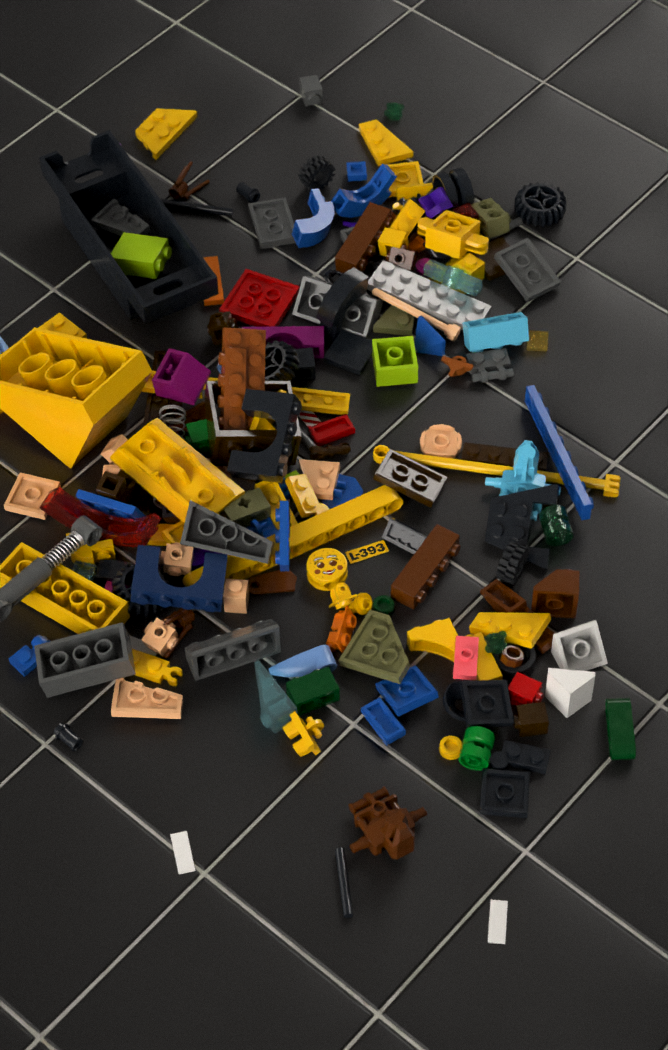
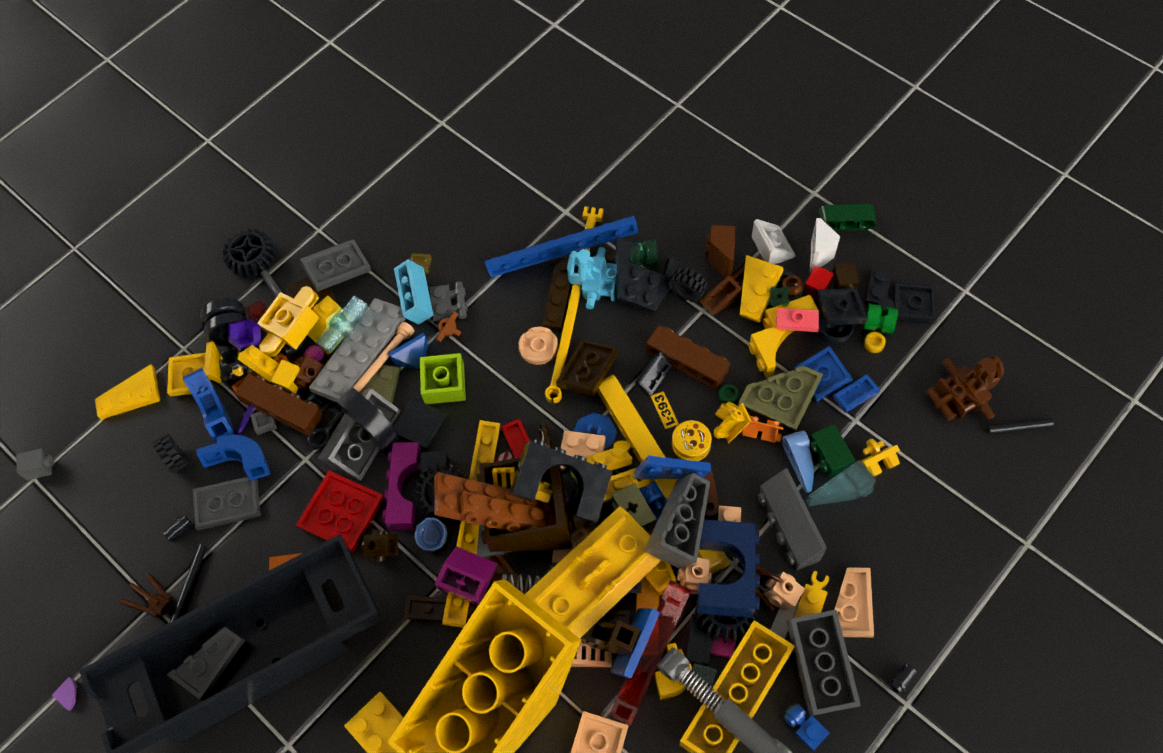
camera: 85 degrees left, 10 degrees up
(141, 254) = (274, 630): lime brick -> none
(164, 128) = (52, 629): yellow wing -> none
(182, 852) = (1009, 564): white sticker -> none
(198, 436) = (530, 563): green brick -> none
(356, 171) = (168, 418): blue plate -> none
(394, 110) = (88, 385): clear green plate -> none
(492, 218) = (264, 288): olive brick -> none
(497, 921) = (1034, 312): white sticker -> none

